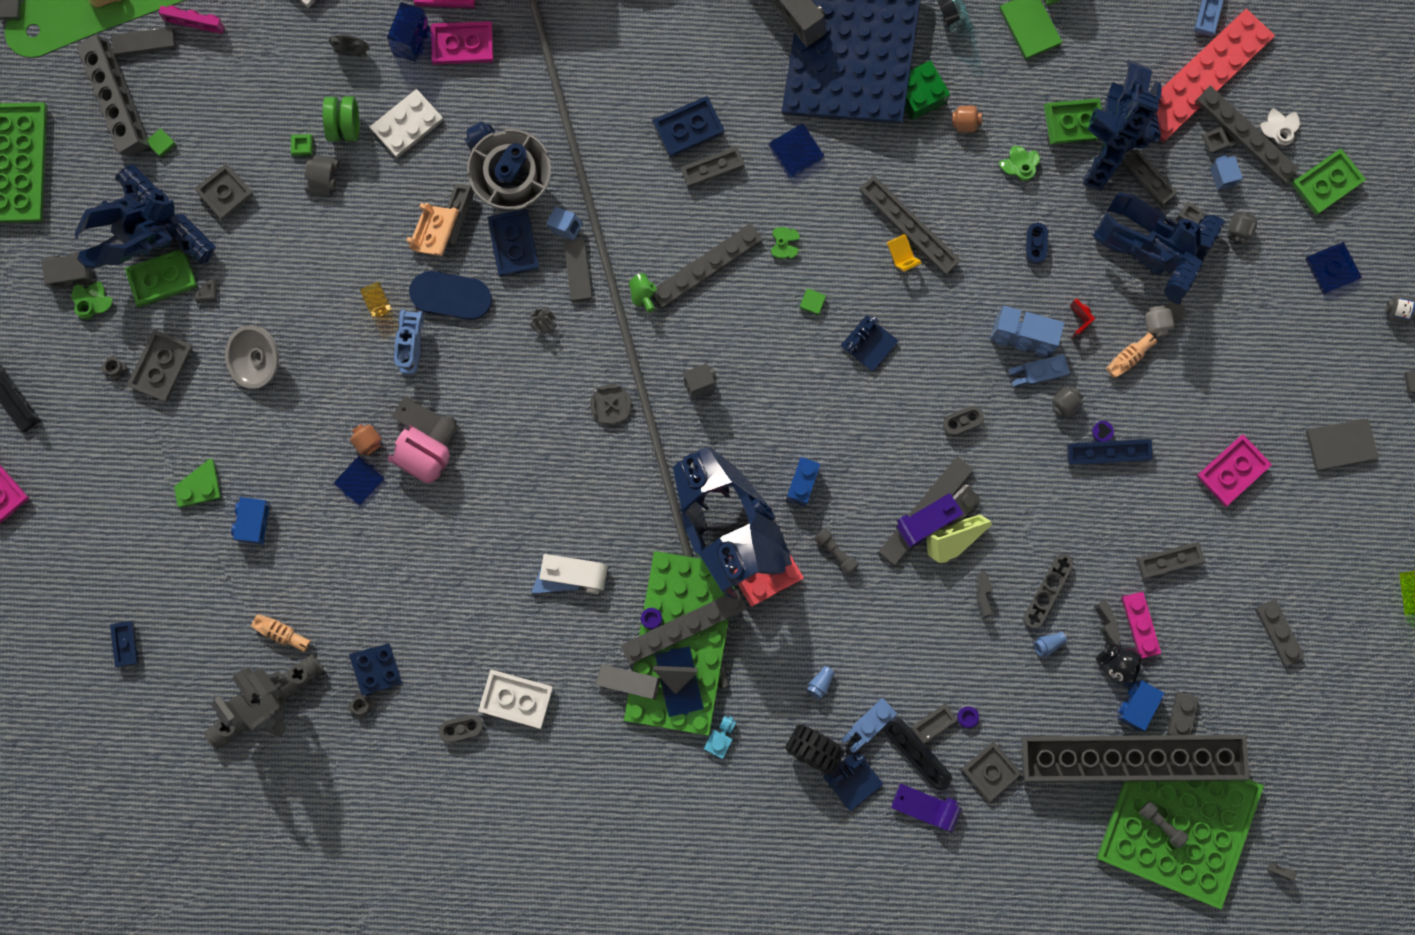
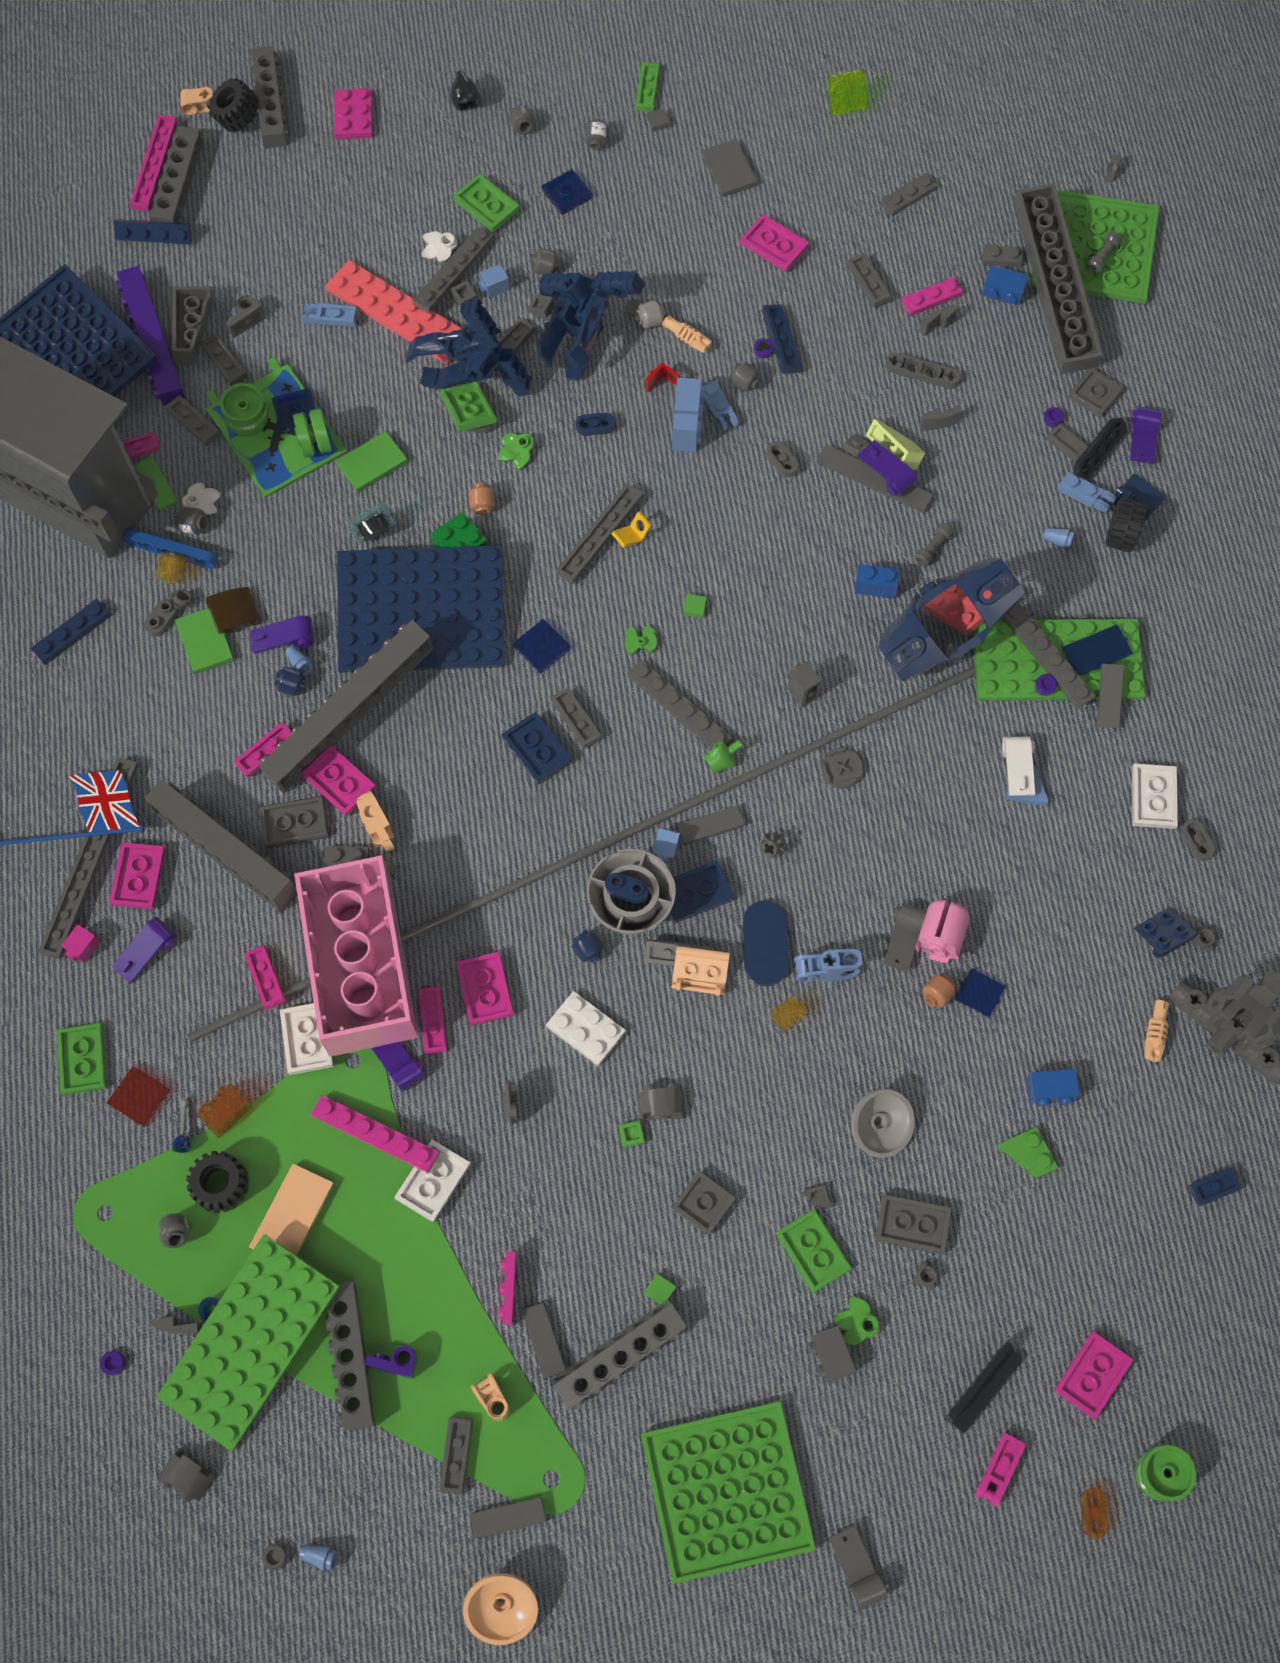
camera: 95 degrees left, 10 degrees down
(140, 224) = (771, 1270): dark blue piece -> none
(341, 119) = (600, 1088): bright green wheel -> none
(408, 32) = (486, 1040): clear blue brick -> none
(675, 677) = (1095, 649): dark grey slope -> none
(718, 742) = (1137, 611): medium azure plate -> none
(869, 342) = (724, 549): dark blue hinge -> none
(1048, 644) = (971, 362): medium blue cone -> none
(1120, 664) = (974, 302): black piece -> none

